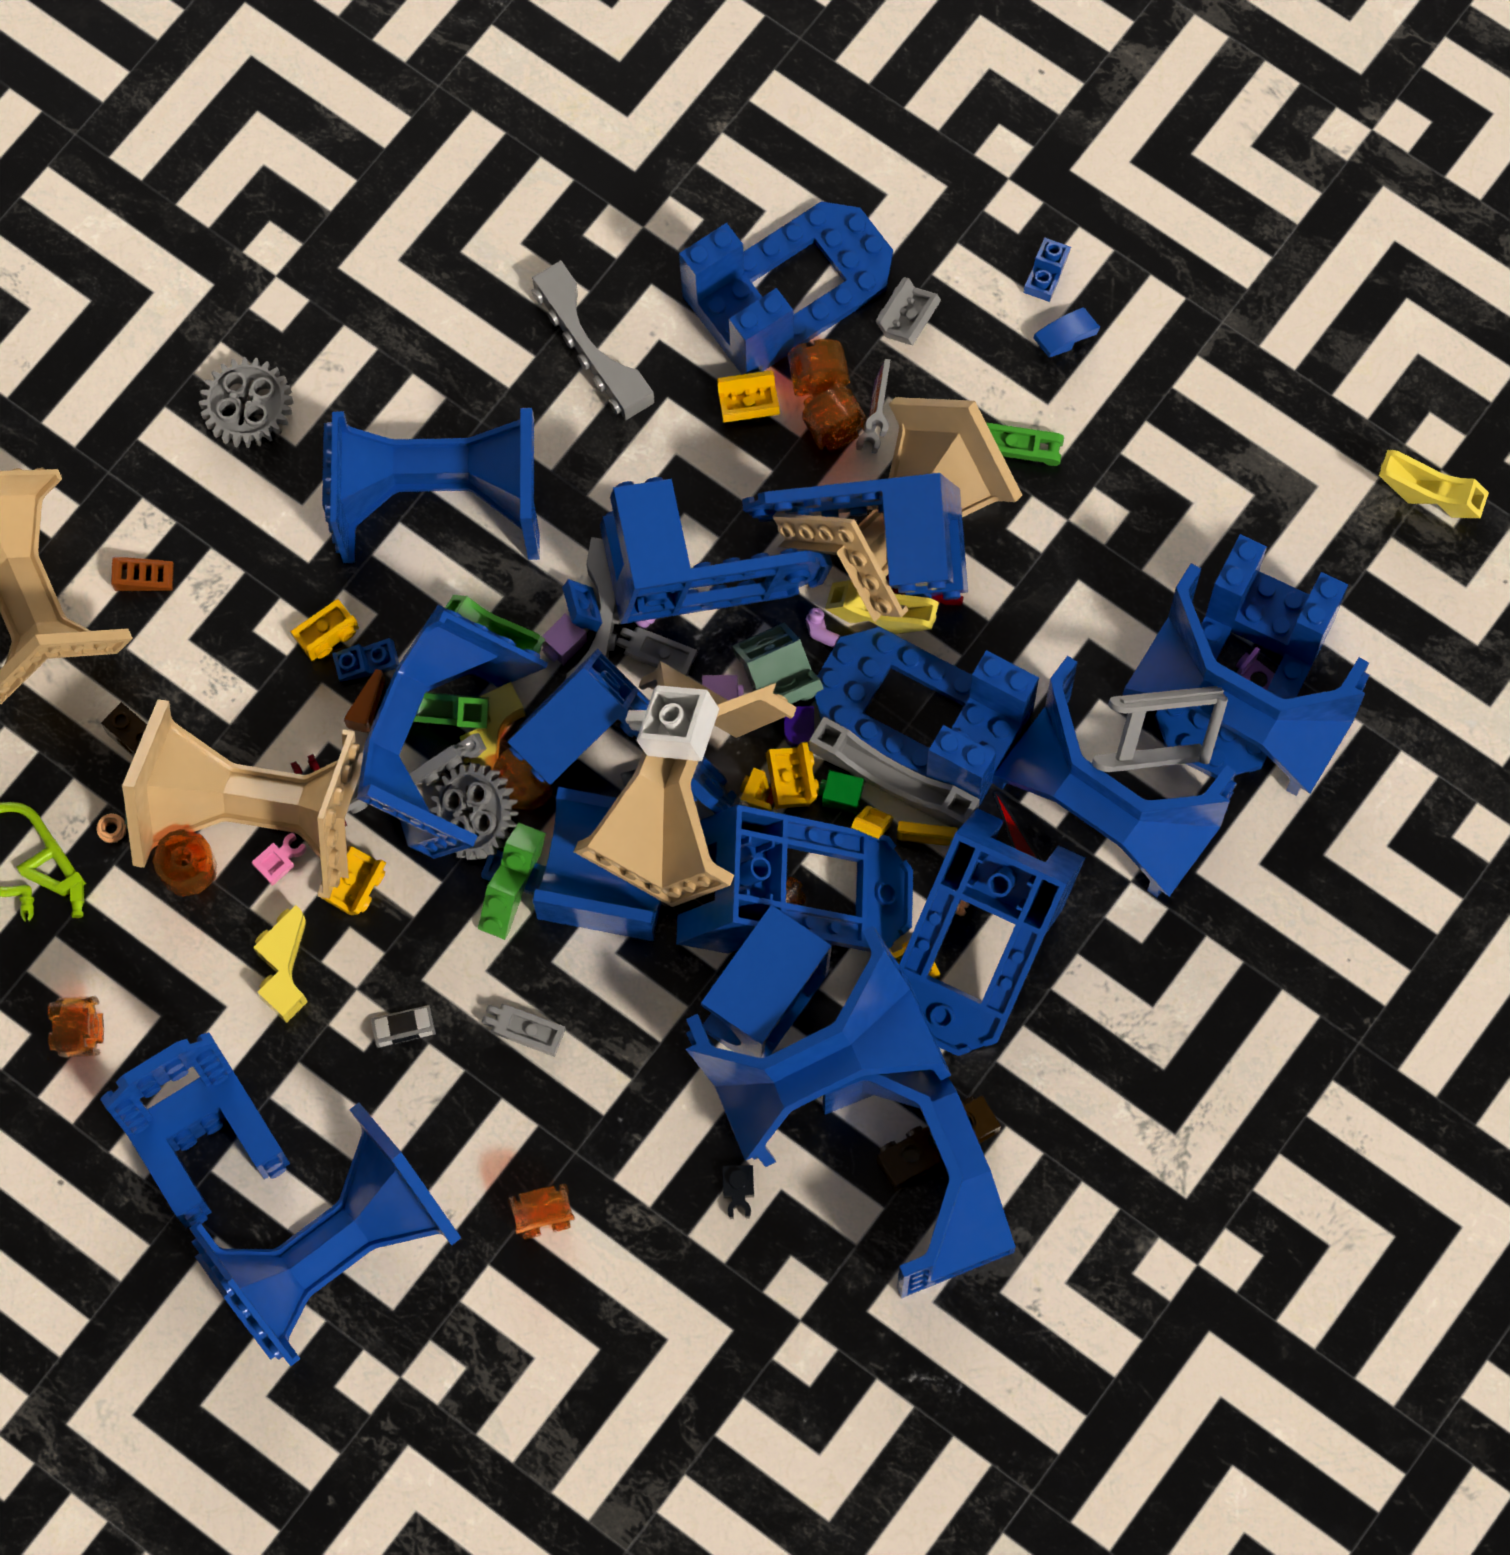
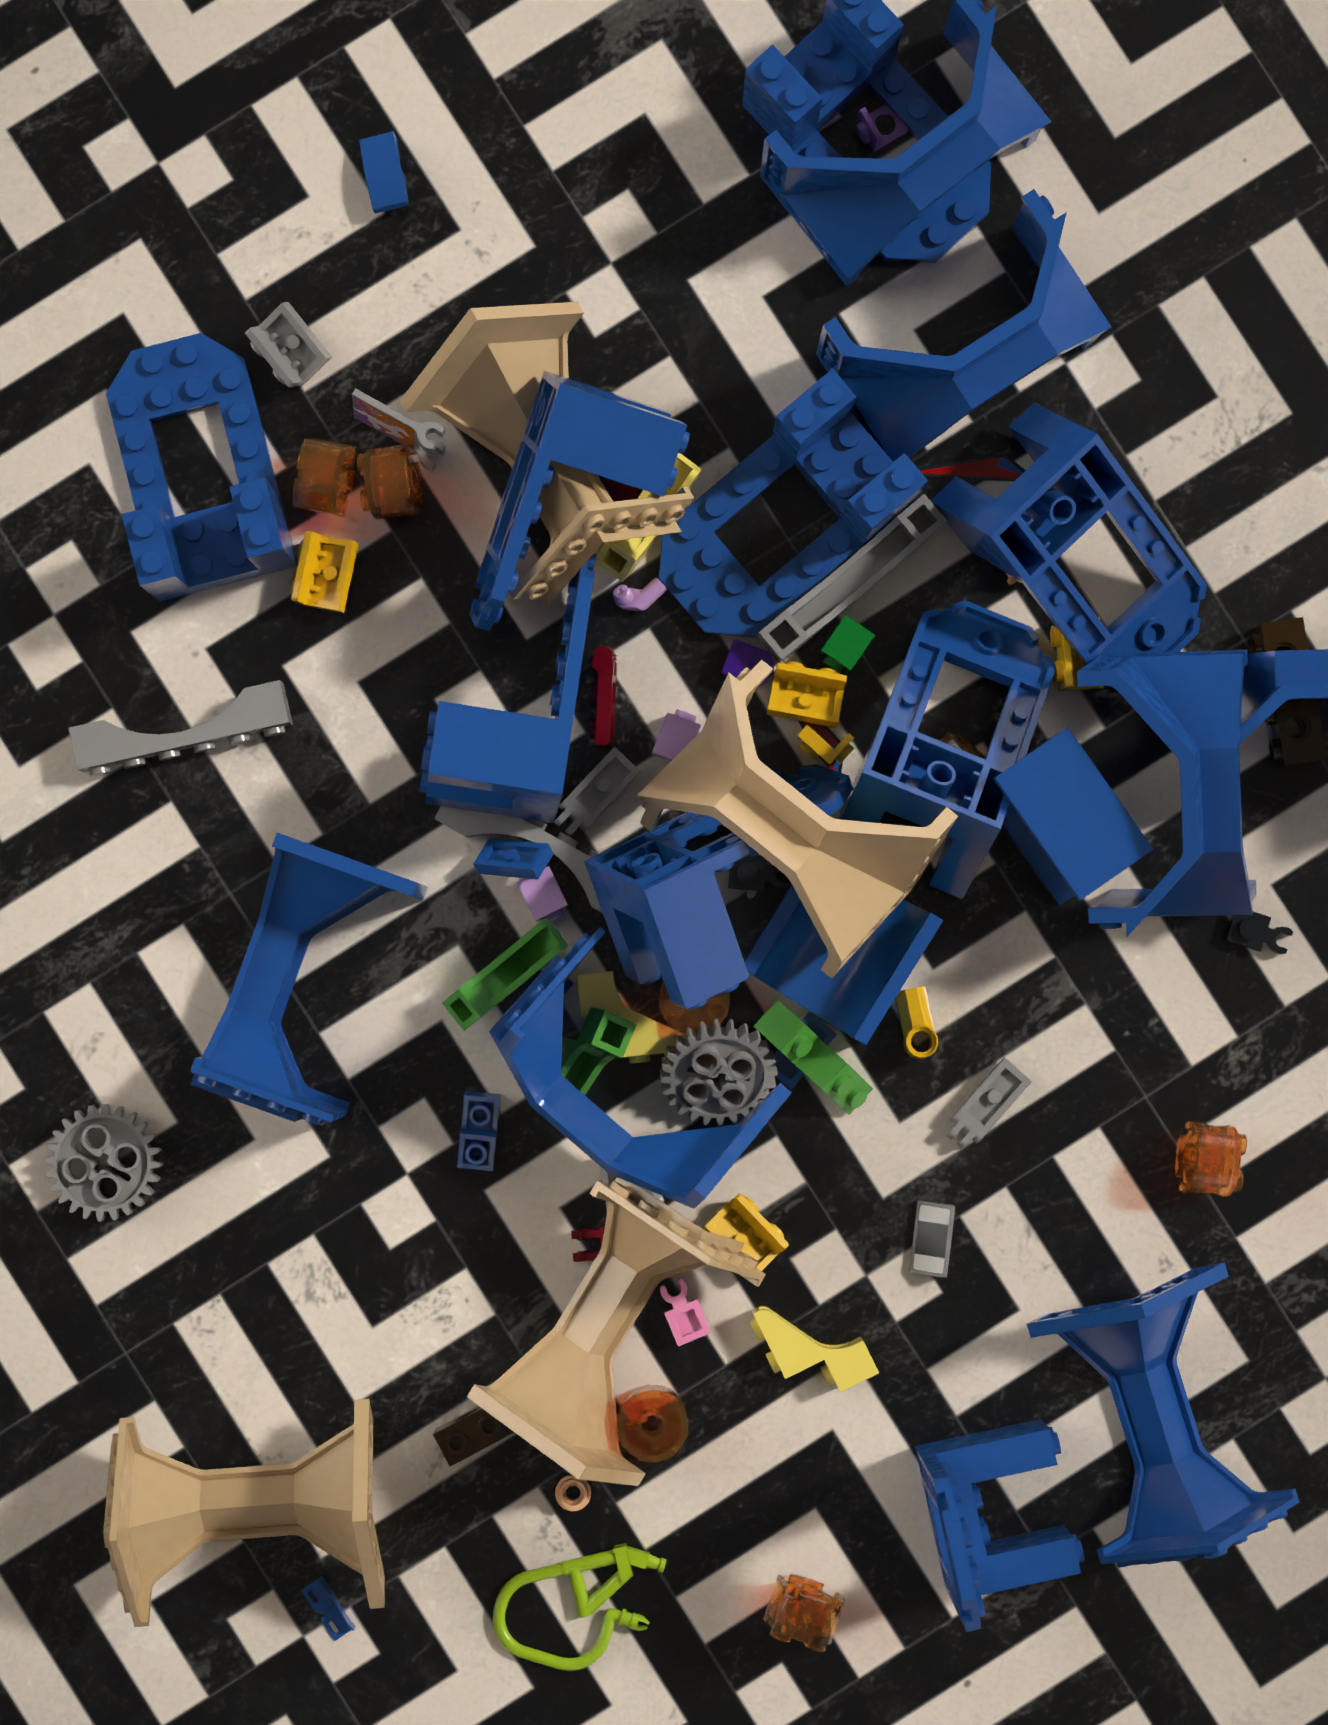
camera: 75 degrees left, 15 degrees up
(142, 565) = (262, 1385): dark orange slope -> none
(325, 630) = (425, 1166): yellow bracket -> none
(364, 708) = (541, 1154): dark orange slope -> none
(448, 759) = (647, 1077): light grey hinge -> none
(570, 948) = (916, 1017): none -> yellow piece
(675, 723) = (758, 808): white hinge -> none
(732, 630) = (604, 695): none -> dark red hinge
(778, 659) = (673, 662): sand green bracket -> none
(872, 822) = (900, 624): yellow tile -> none
(925, 833) = (931, 568): yellow tile -> none
(1025, 443) = (503, 272): bright green plate -> none
(1047, 269) = (294, 163): blue slope -> none
(1136, 707) = (927, 275): light grey piece -> none

